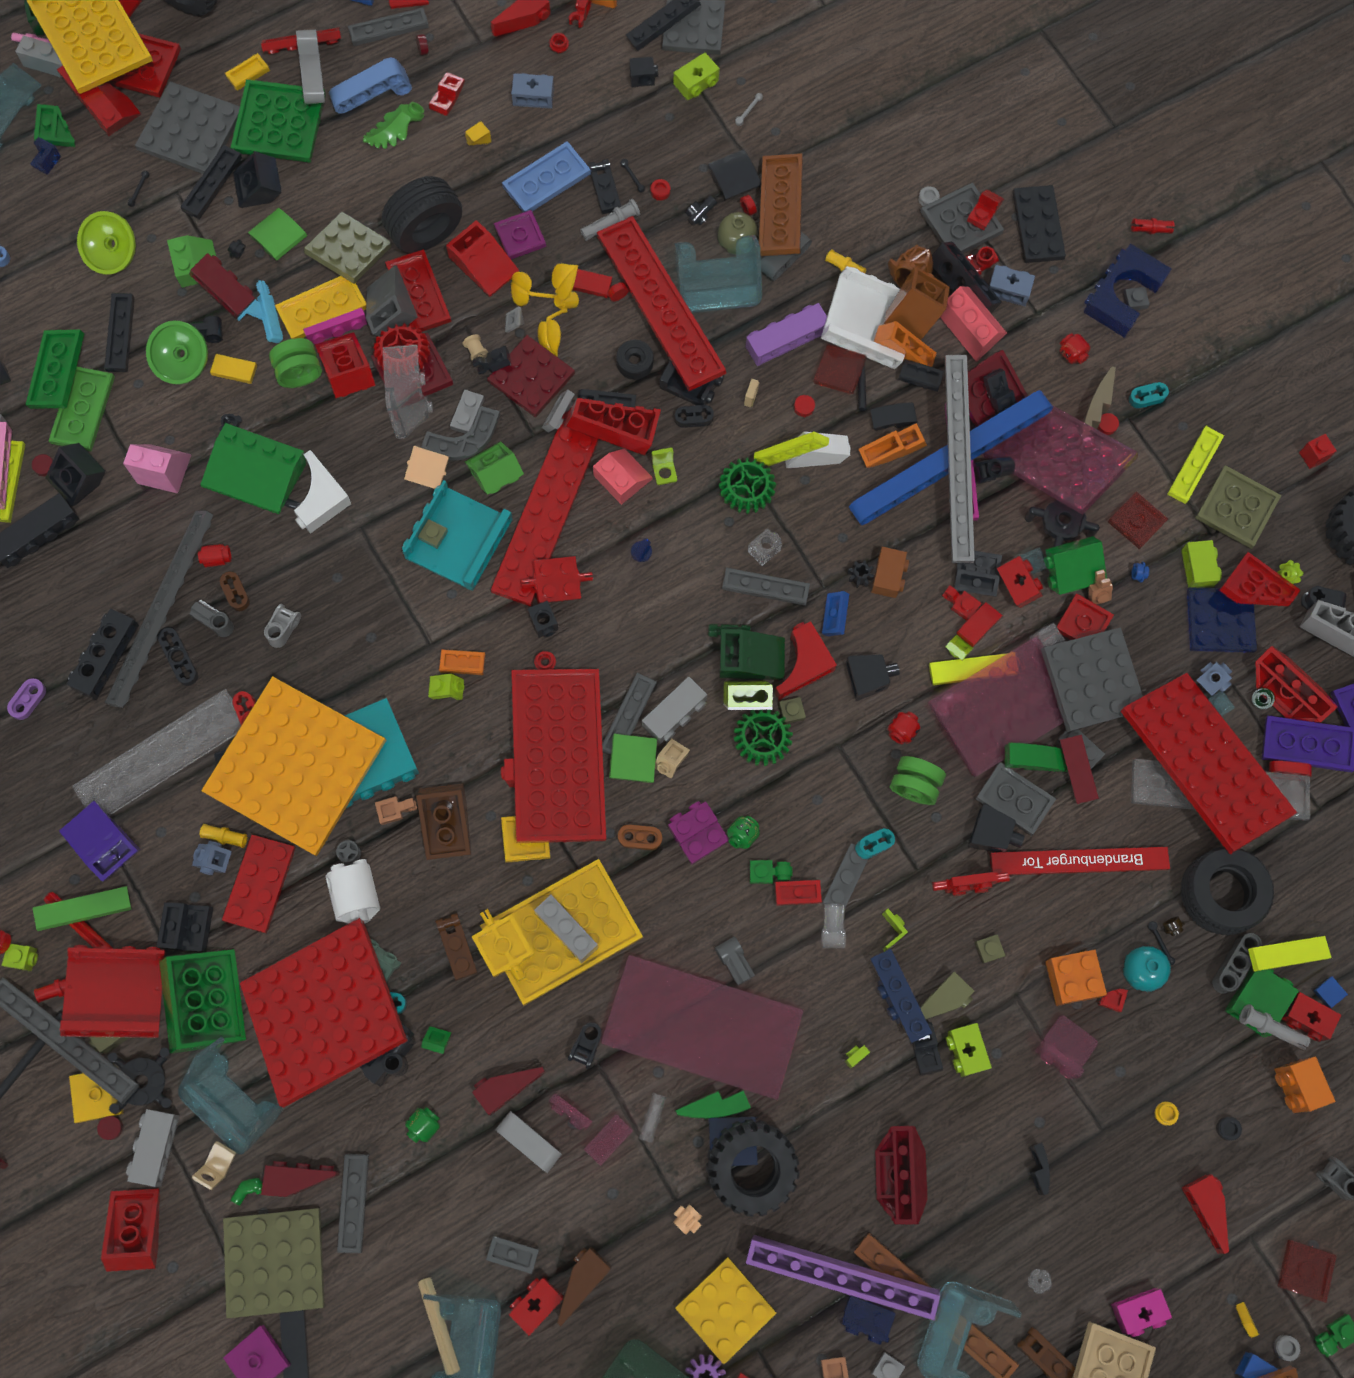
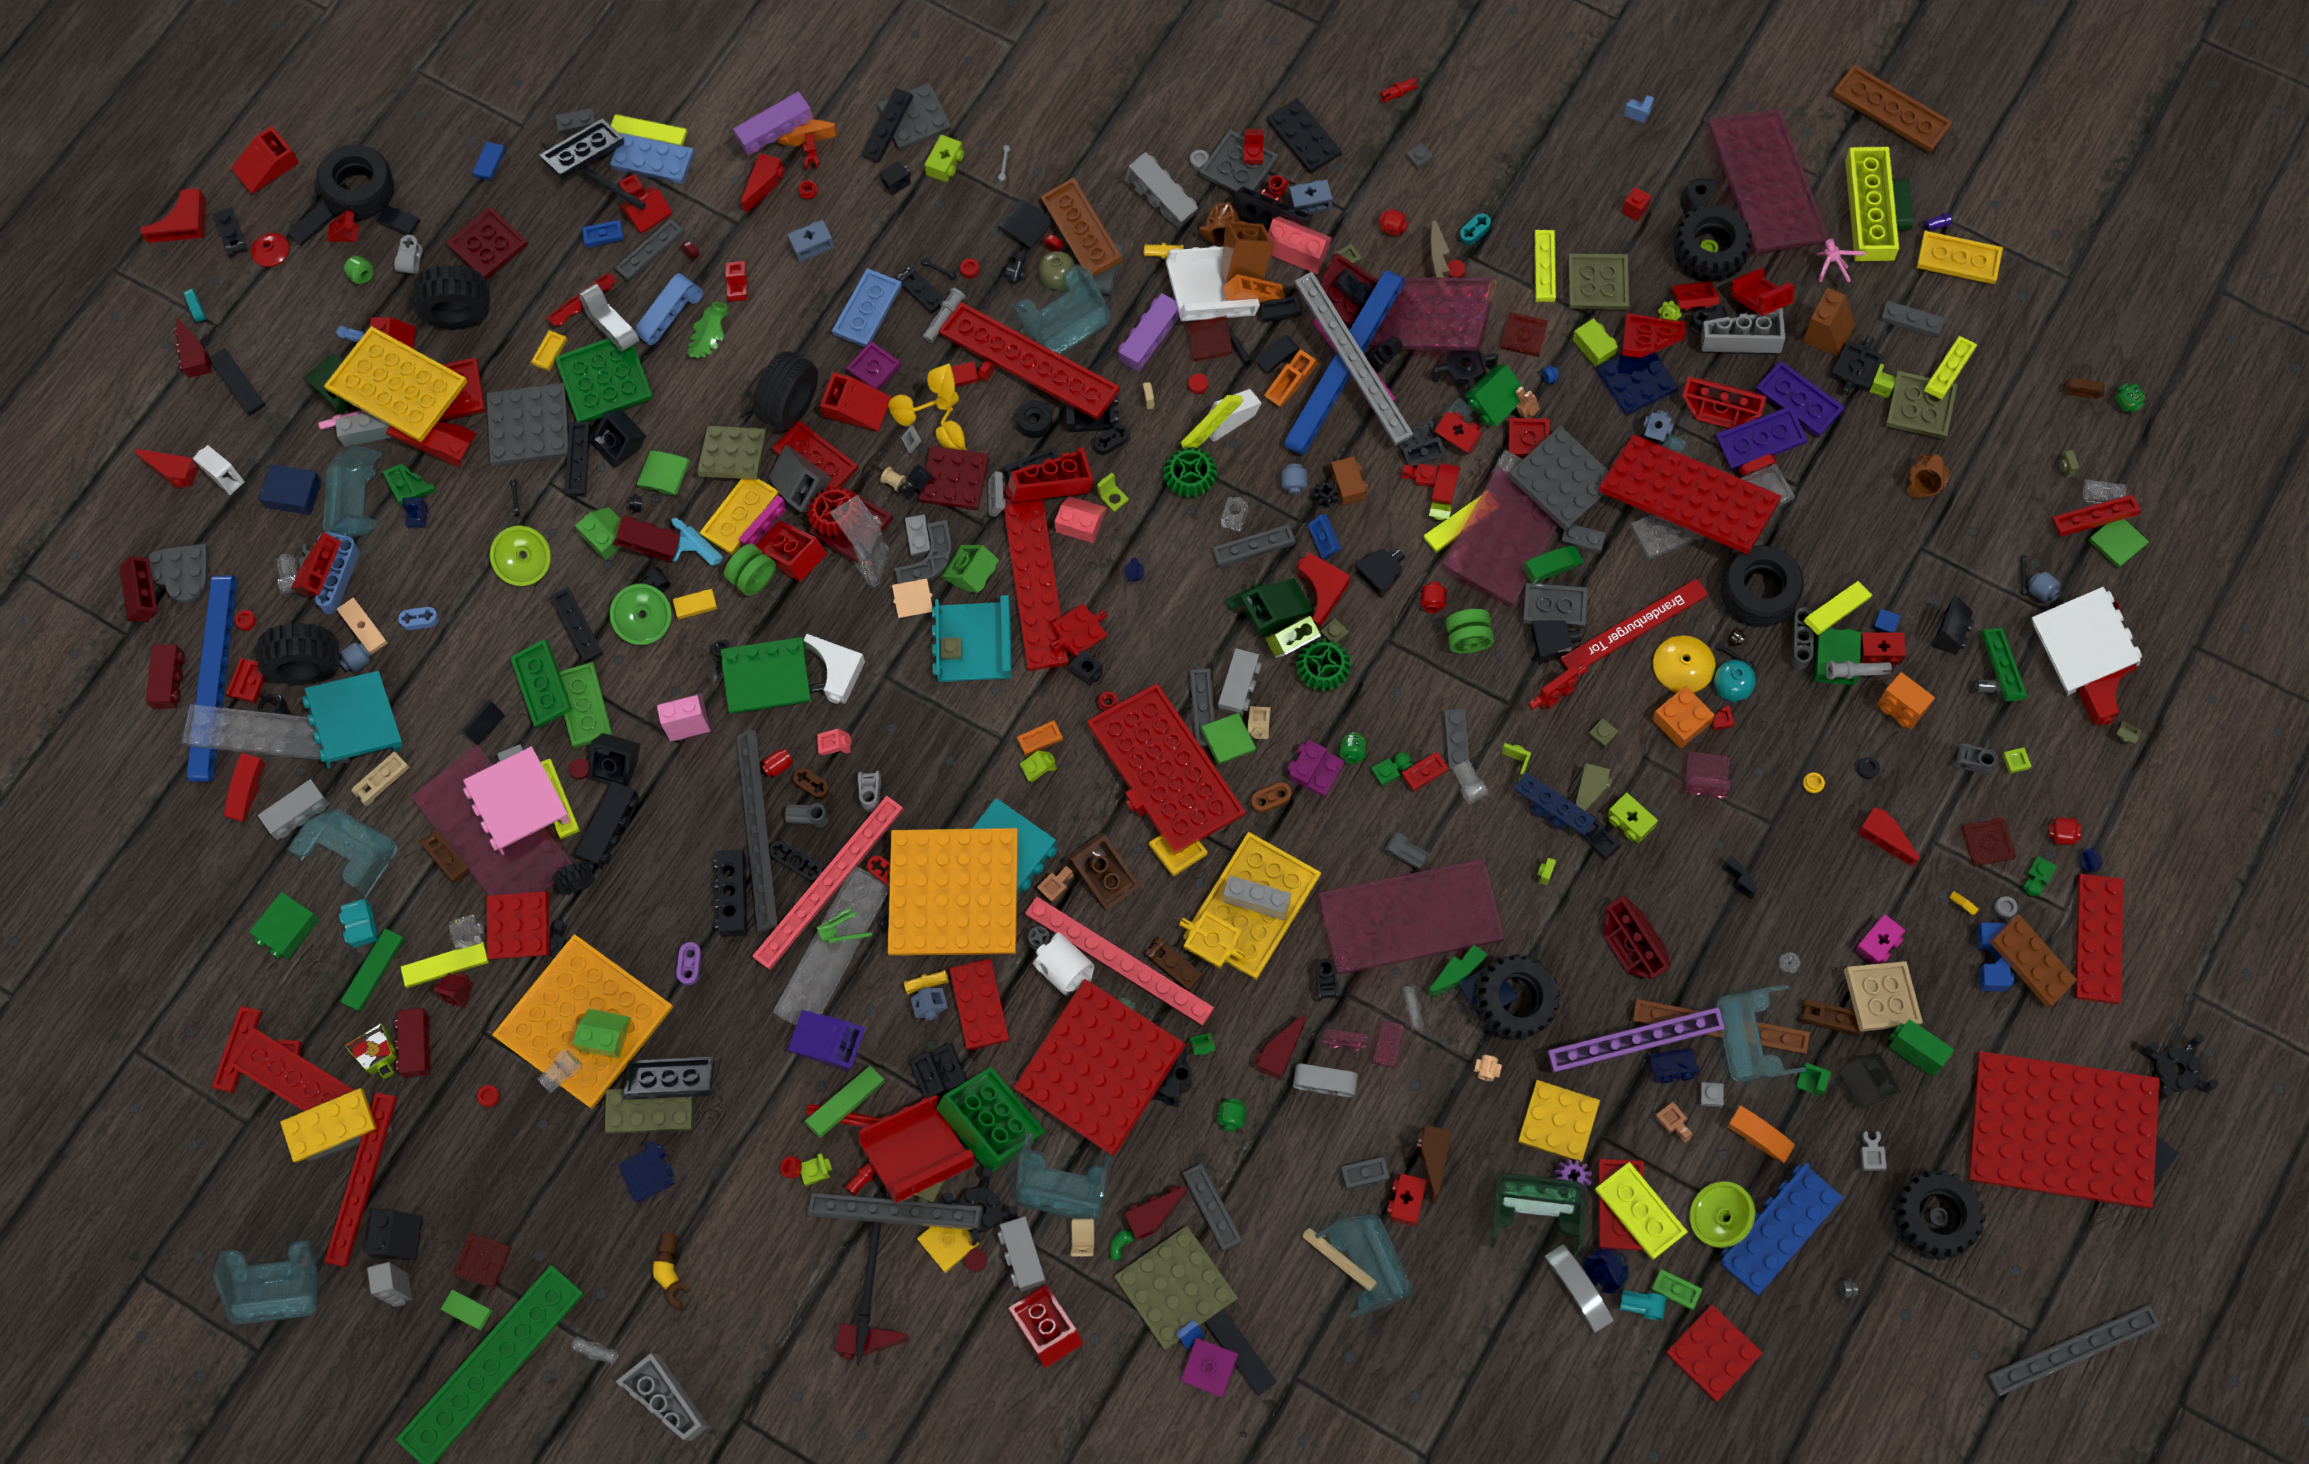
camera: 20 degrees left, 5 degrees down
(164, 738) = (828, 929): none -> bright green plant
(192, 692) = (827, 883): none -> coral plate
(255, 1317) = (1189, 1334): none -> blue tile
(277, 563) = (833, 741): none -> coral bracket
(409, 916) = (1120, 962): none -> coral plate
(478, 135) = (786, 301): yellow slope -> none
(839, 543) = (1294, 478): none -> sand blue head
(875, 206) = (1161, 190): none -> light grey wedge
(877, 847) = (1467, 702): teal beam -> none
(1016, 358) = (1350, 254): none -> olive plate
(1079, 769) = (1592, 554): dark red tile -> none
(1096, 934) = (1675, 672): none -> yellow dish
(1131, 265) = (1402, 130): clear blue arch -> none
(1260, 703) = (1705, 428): plate -> none
(1324, 569) = (1695, 295): none -> red plate

